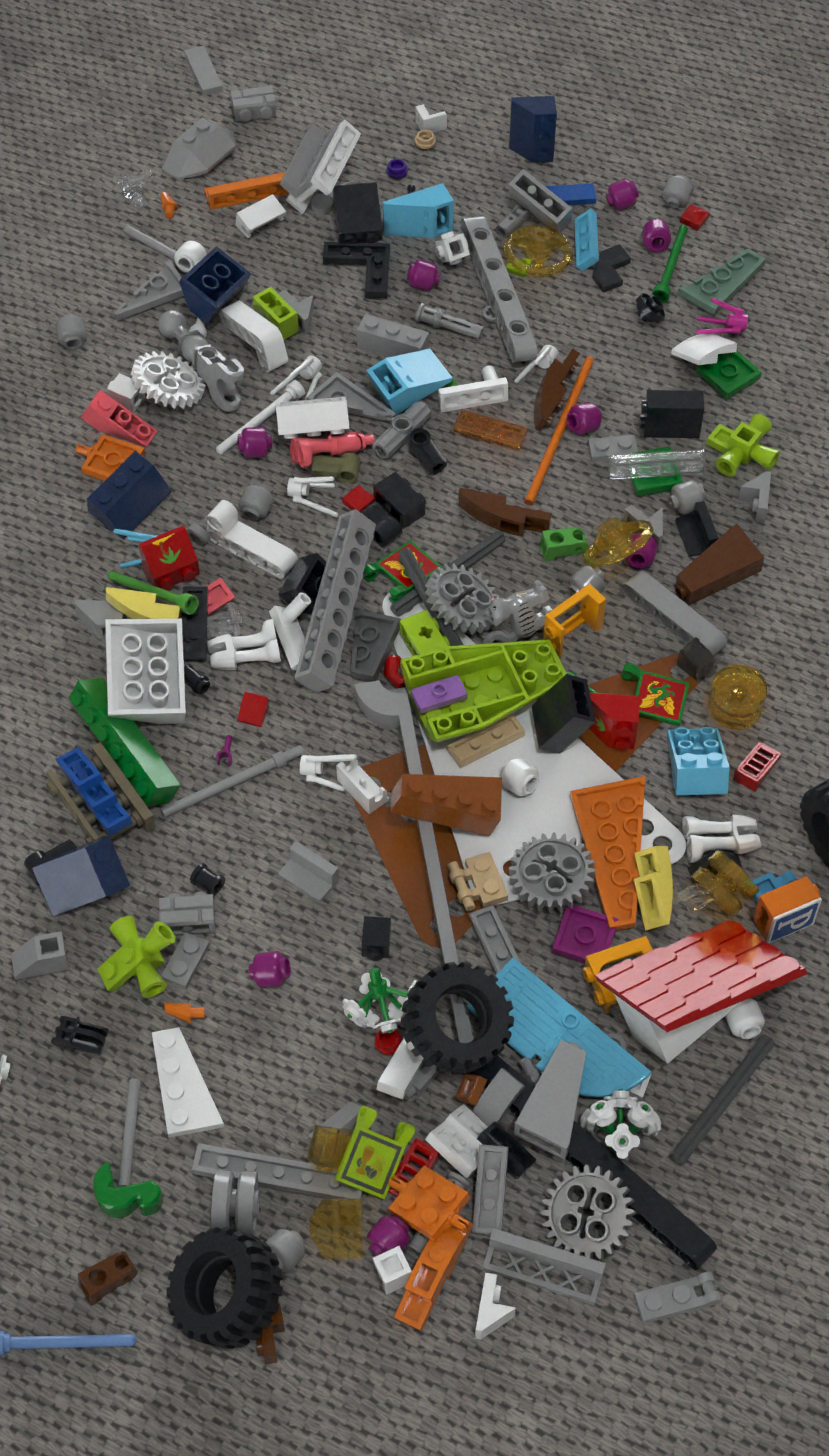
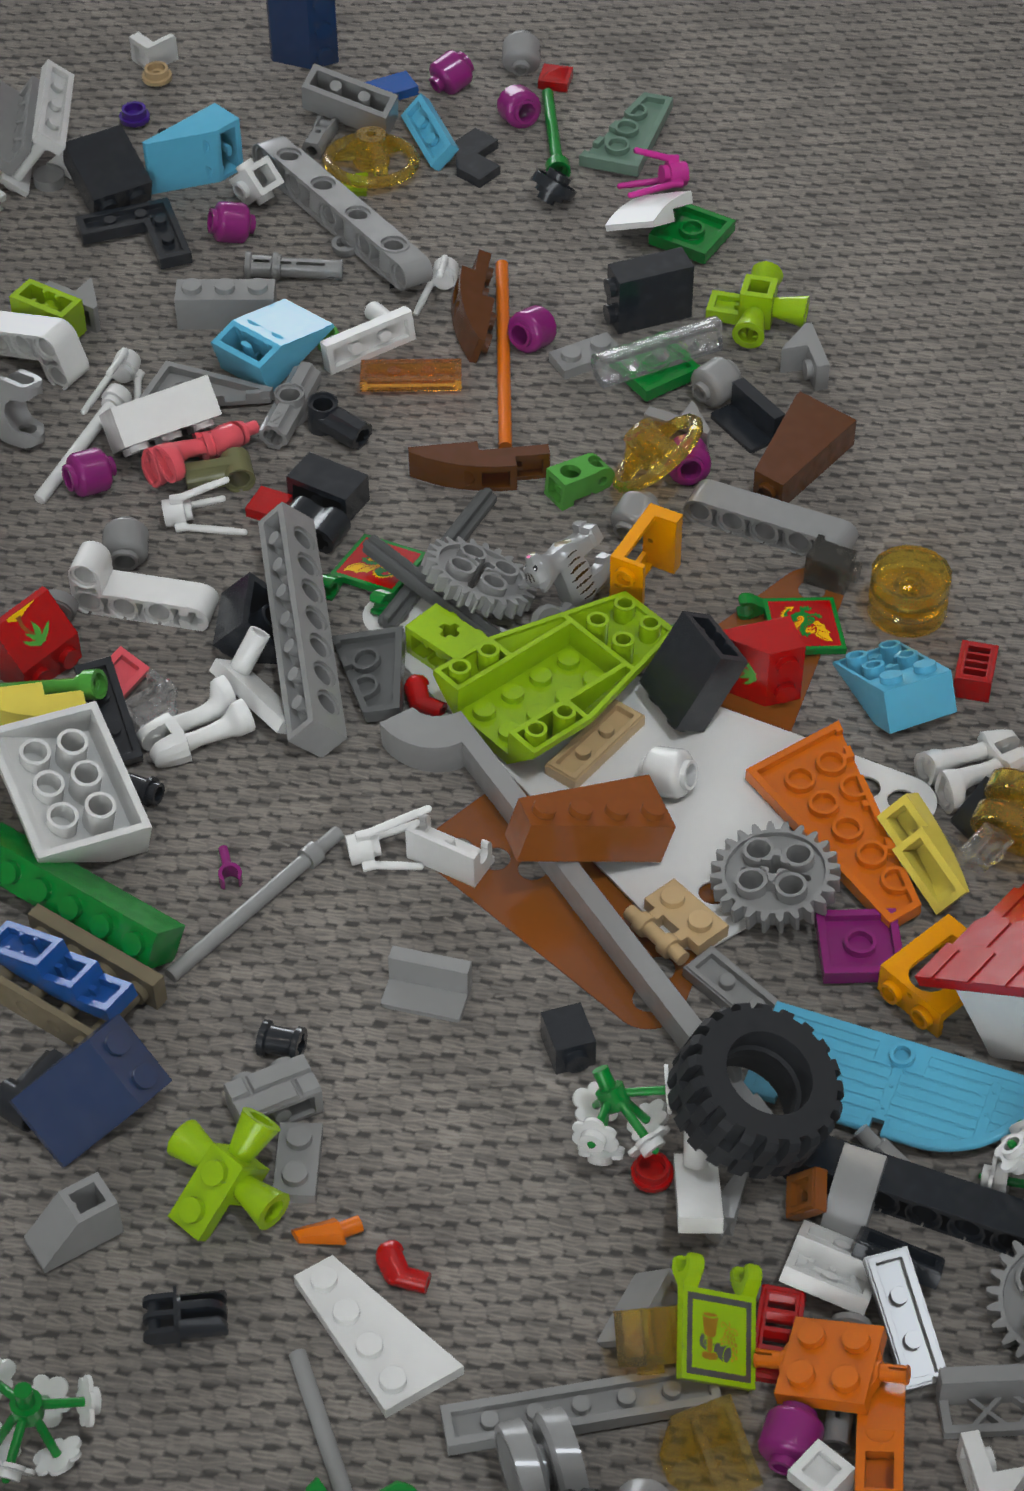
camera: 20 degrees left, 10 degrees down
(211, 1049) = (396, 1269): none -> red arm
(253, 709) = (243, 801): red slope -> none
(270, 969) = (432, 1130): magenta head -> none
(439, 694) = (505, 700): medium lavender plate -> none
(552, 1104) = (943, 1169): light grey slope -> none

